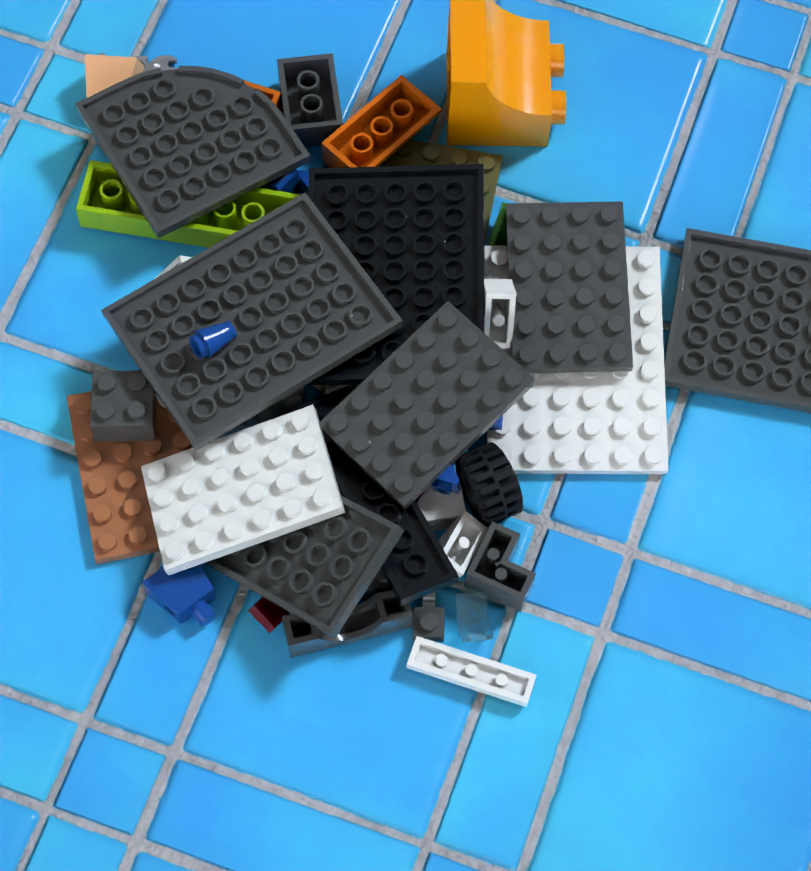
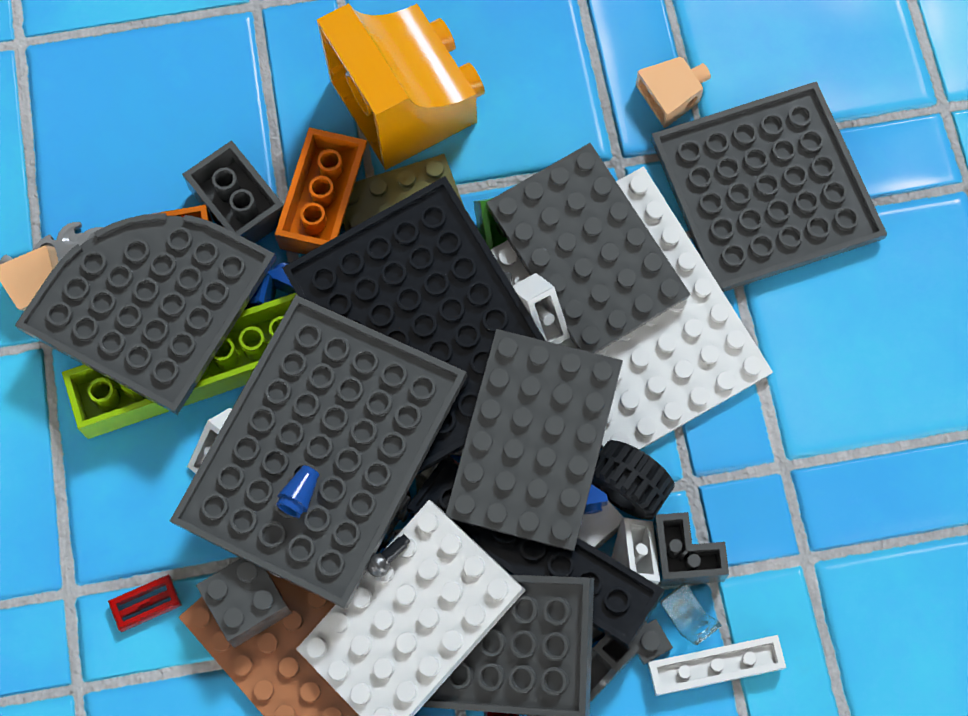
camera: 25 degrees left, 5 degrees up
(70, 377) = (147, 615): none -> red tile
(244, 430) = (380, 562): none -> piece
(729, 201) = (672, 88): none -> light nougat torso

